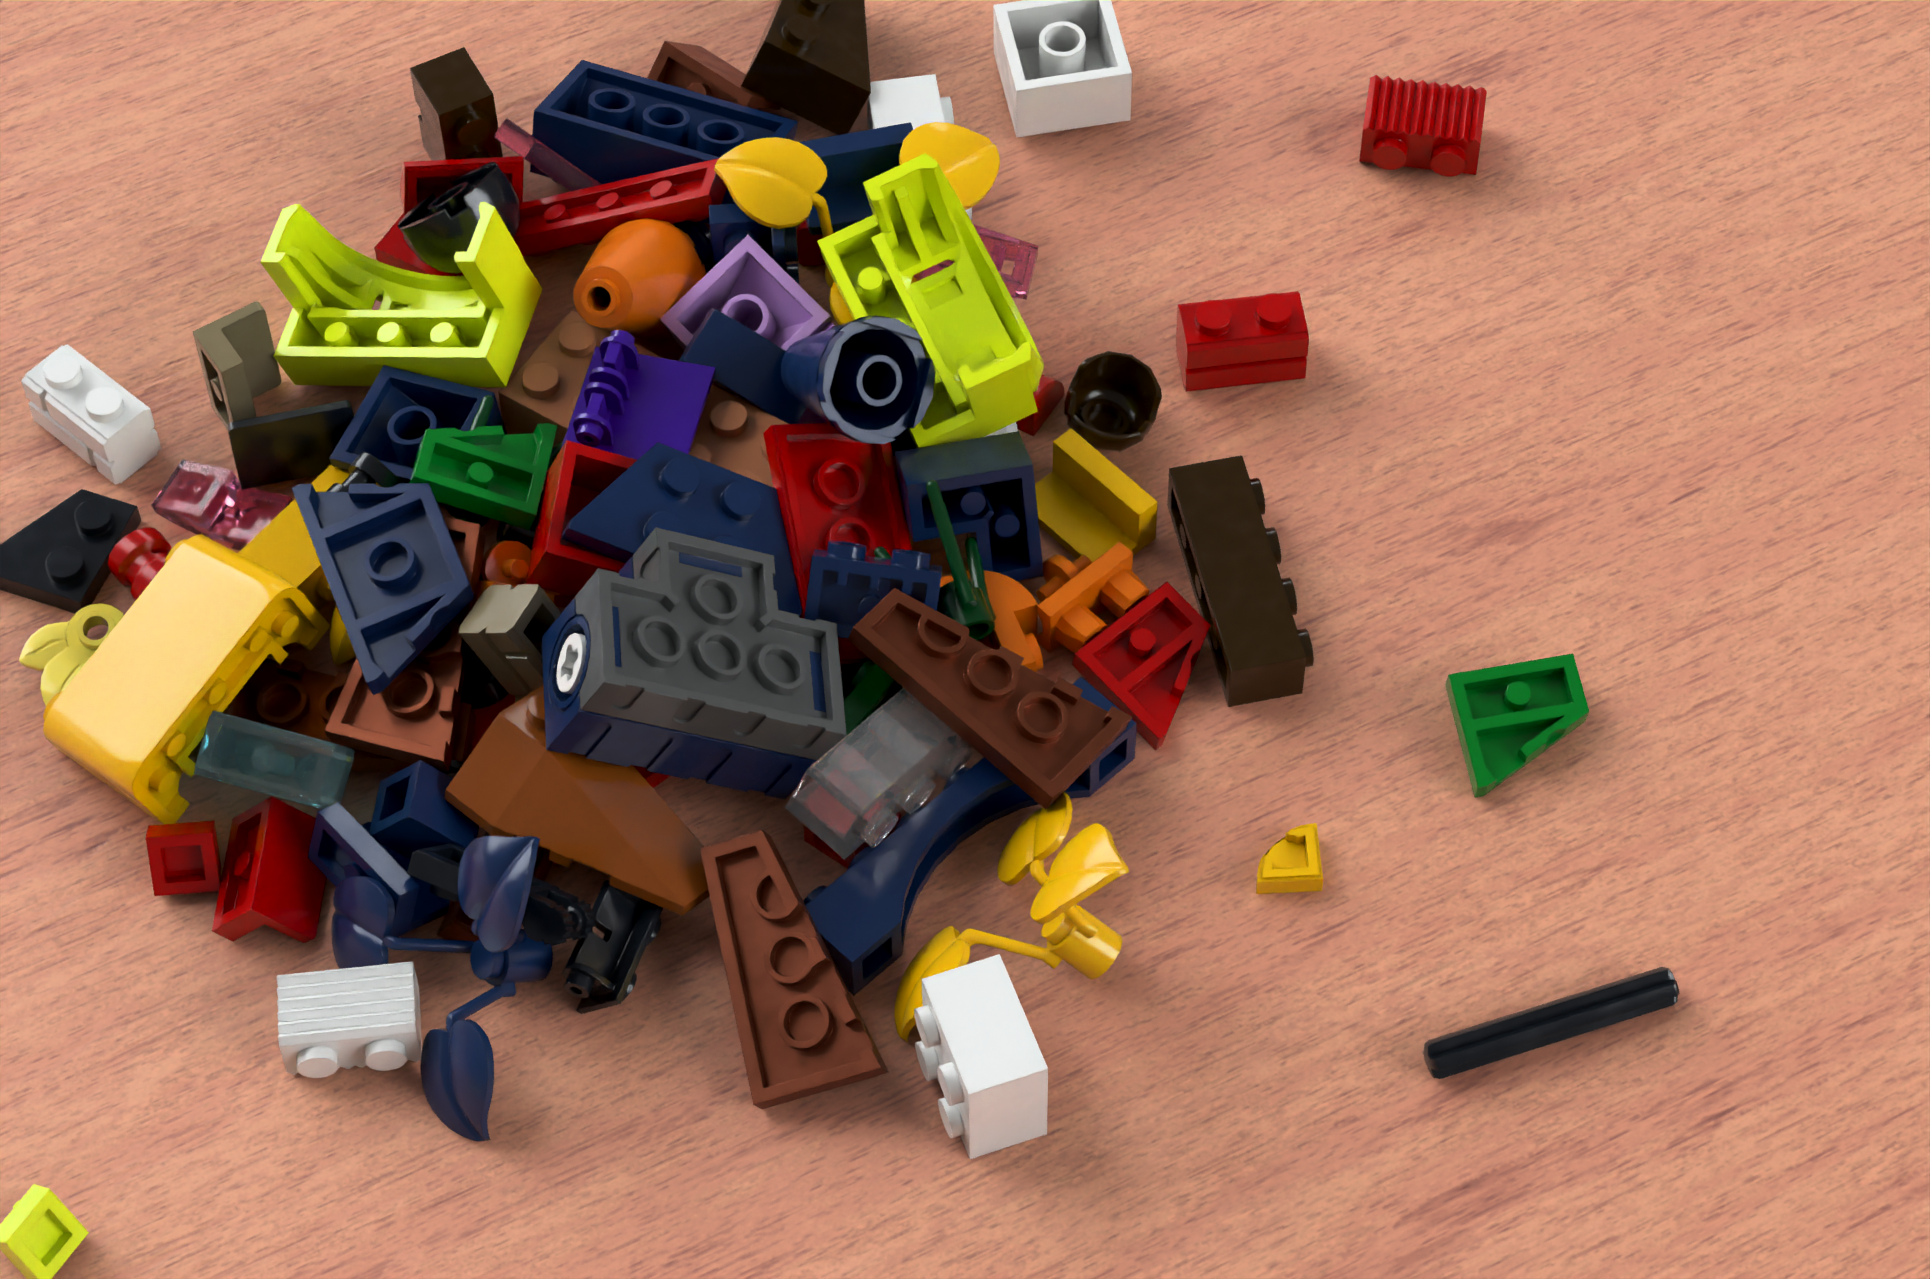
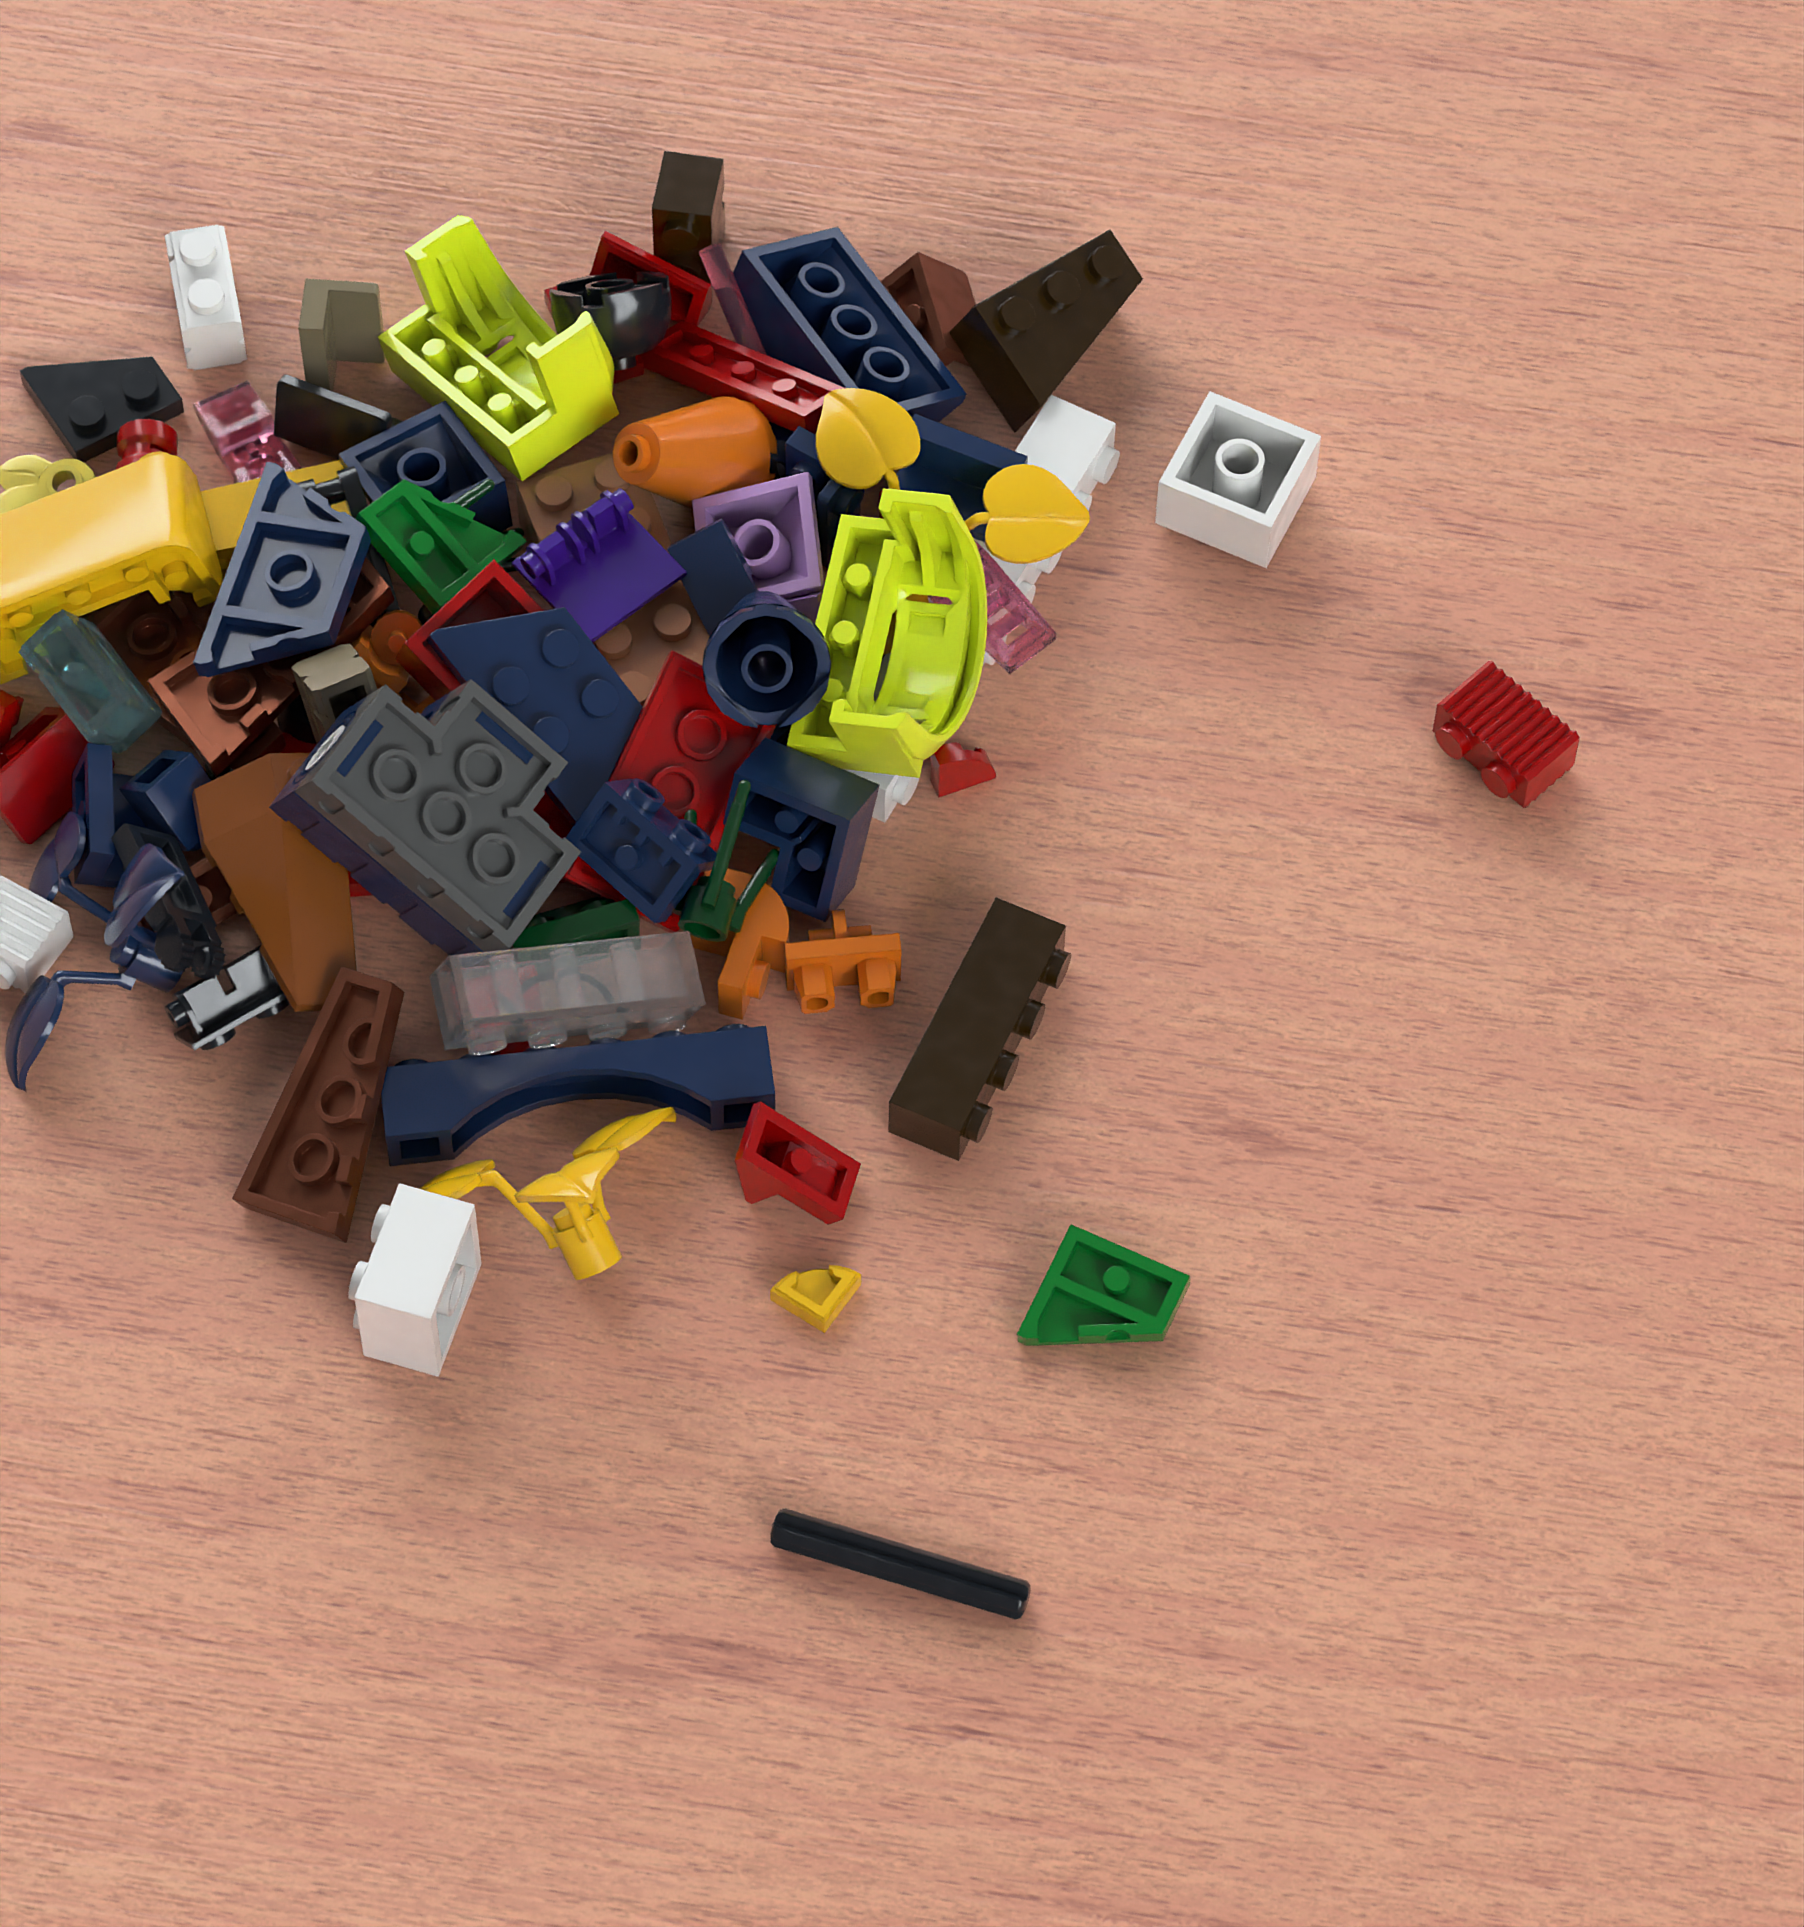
camera: 35 degrees right, 5 degrees up
(1011, 715) = (666, 1014): copper wing -> none
(1091, 502) = (919, 888): yellow panel -> none
(1112, 401) = (1010, 809): dark brown hair -> none
(1146, 660) = (847, 1049): red wing -> none
(1193, 770) = (794, 1163): none -> red slope
(1241, 341) = (1168, 826): red brick -> none

